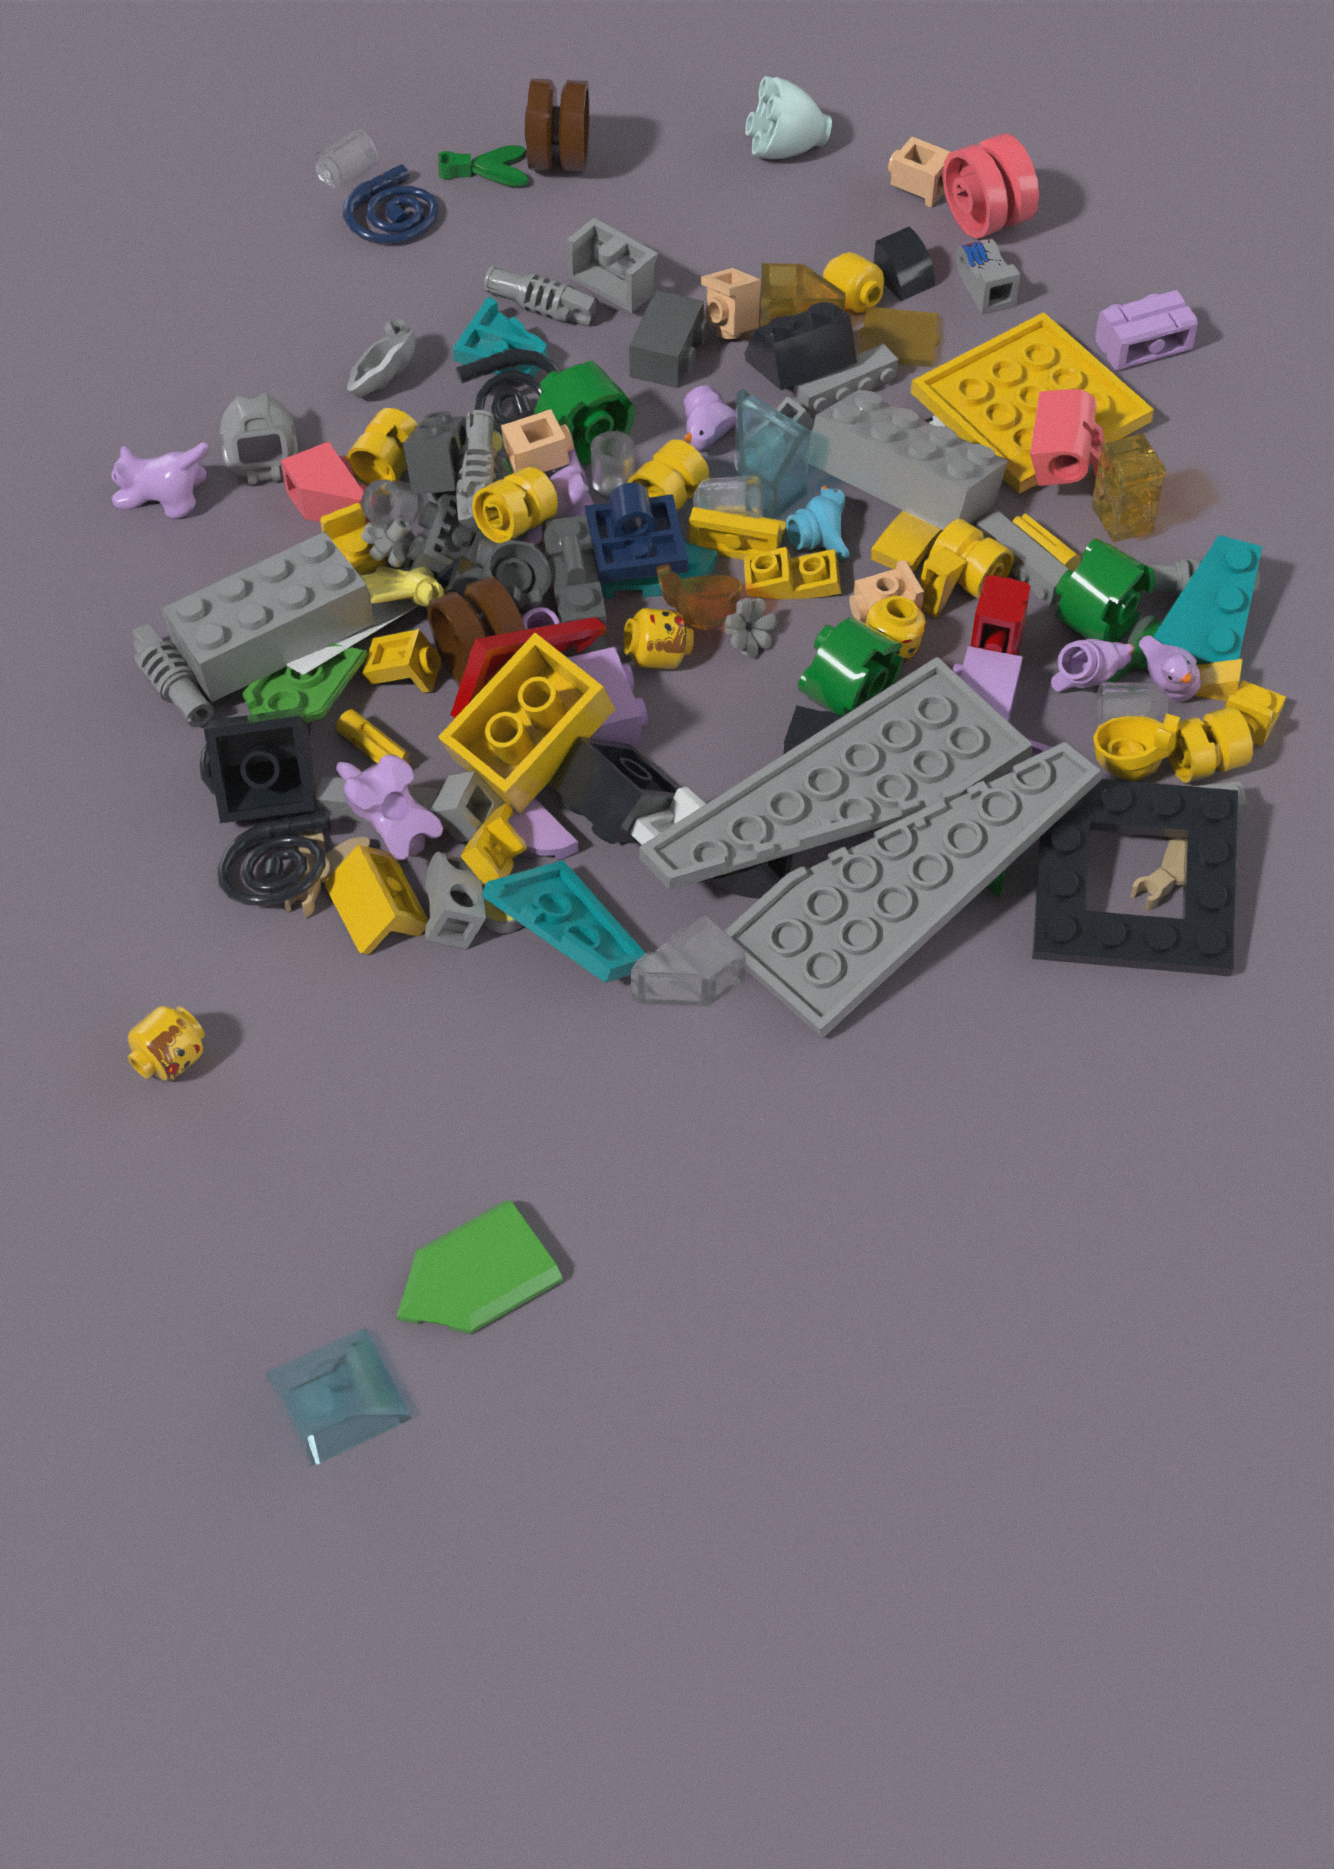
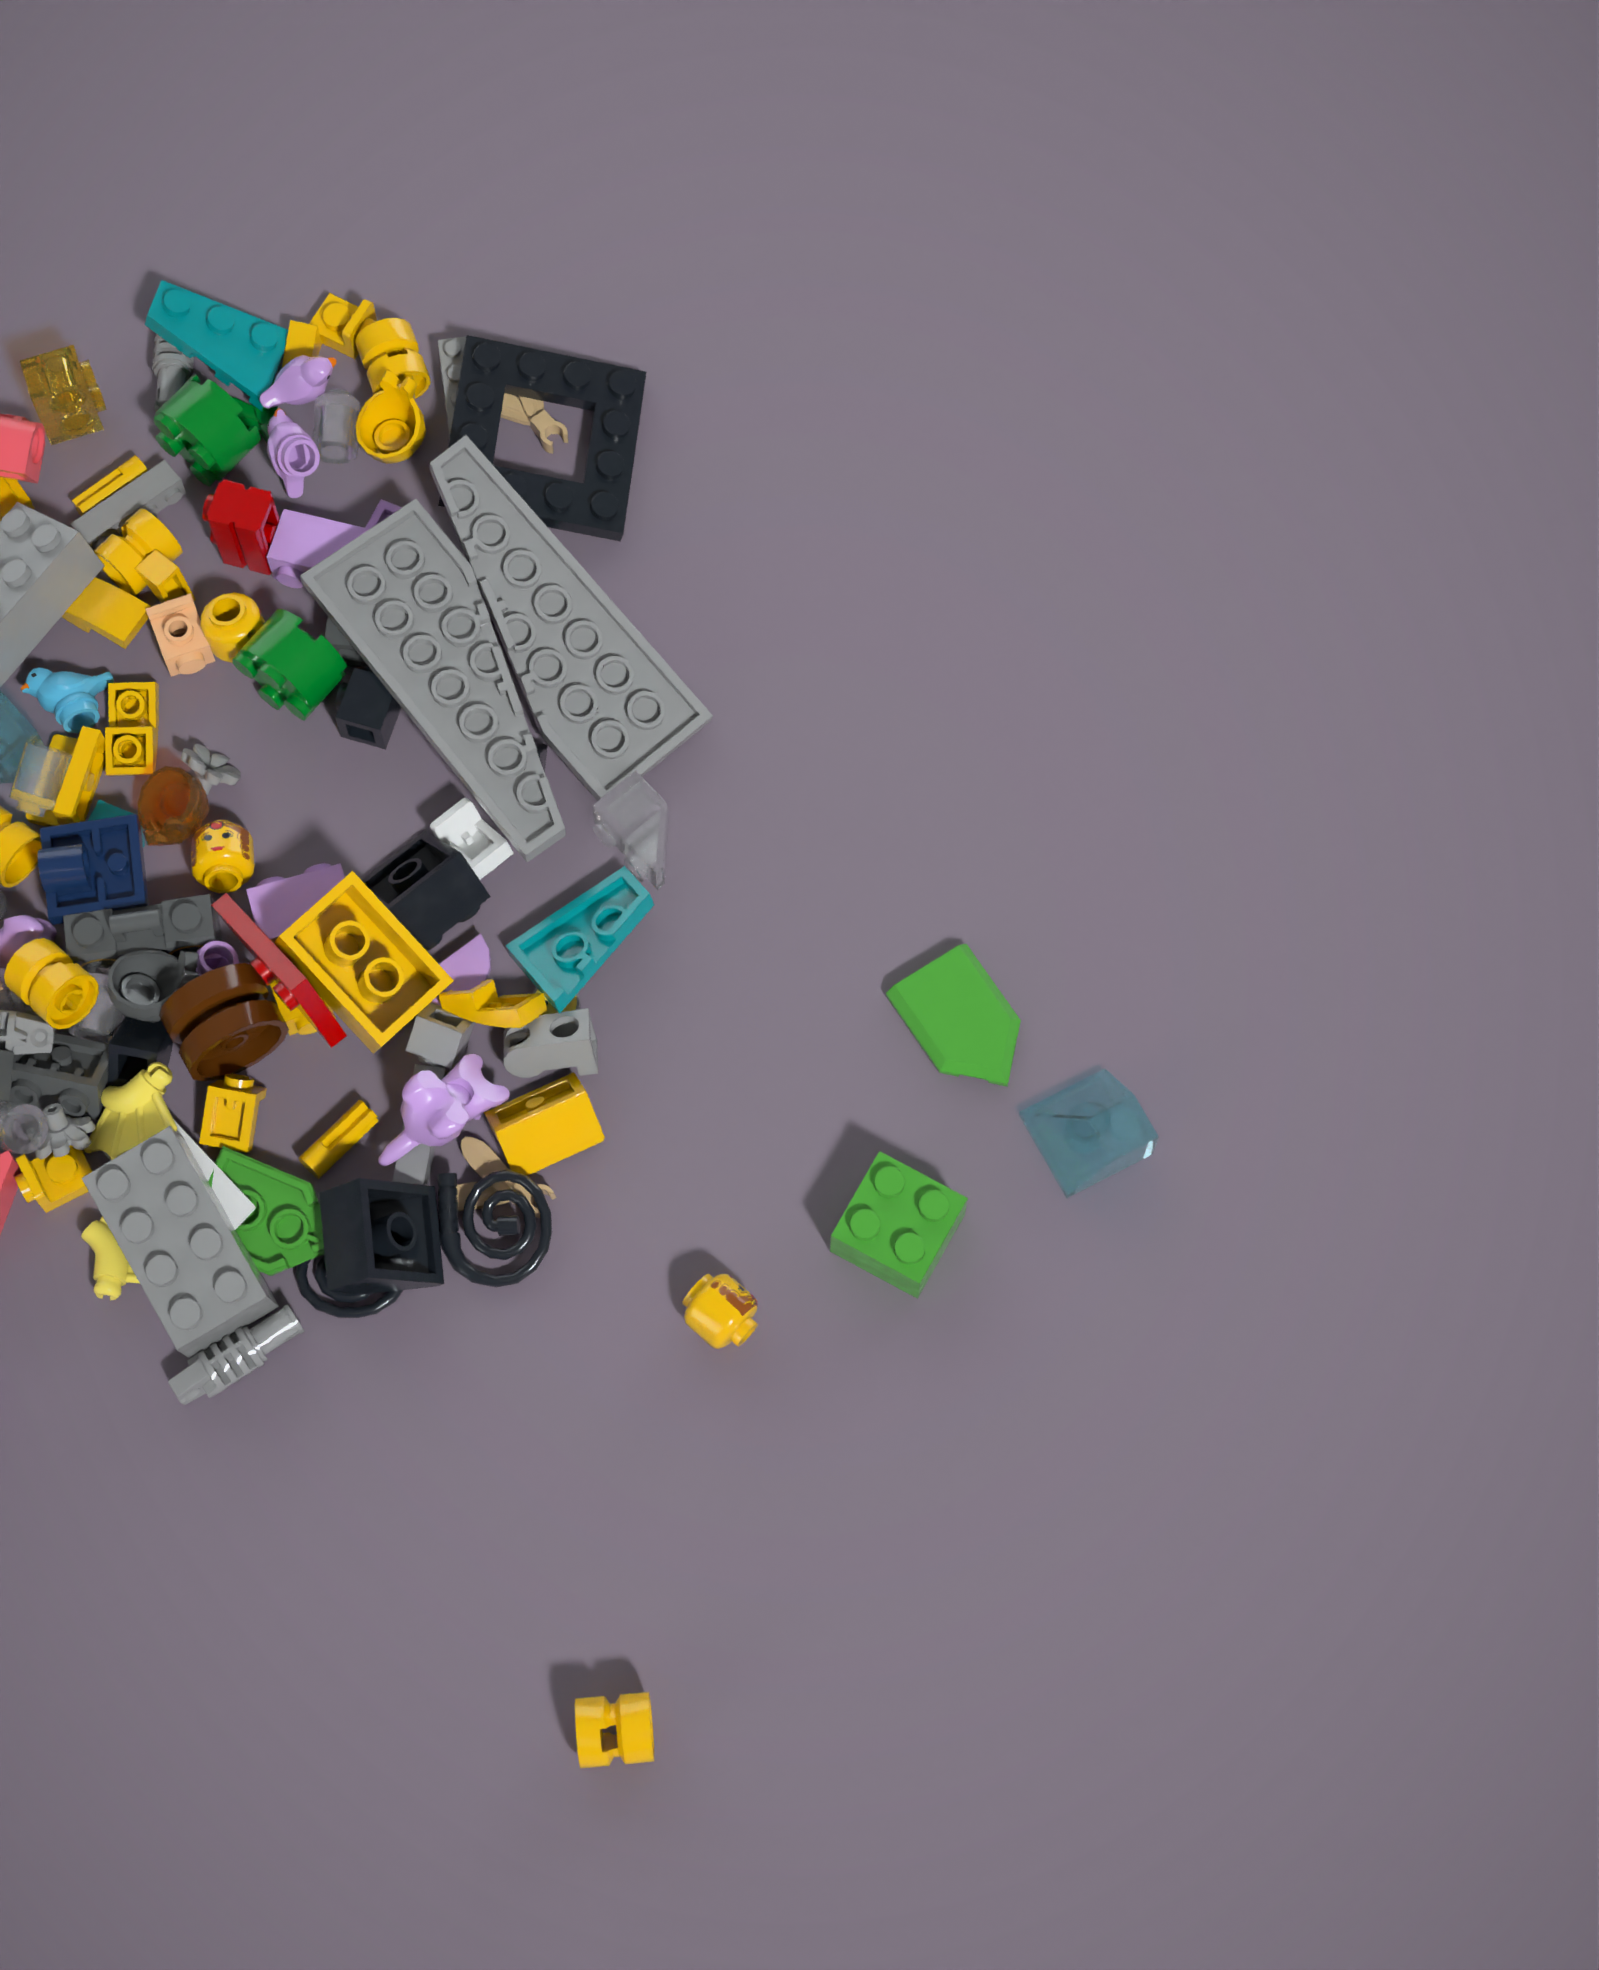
camera: 90 degrees left, 15 degrees up
(238, 1198) = (898, 1224): none -> bright green brick

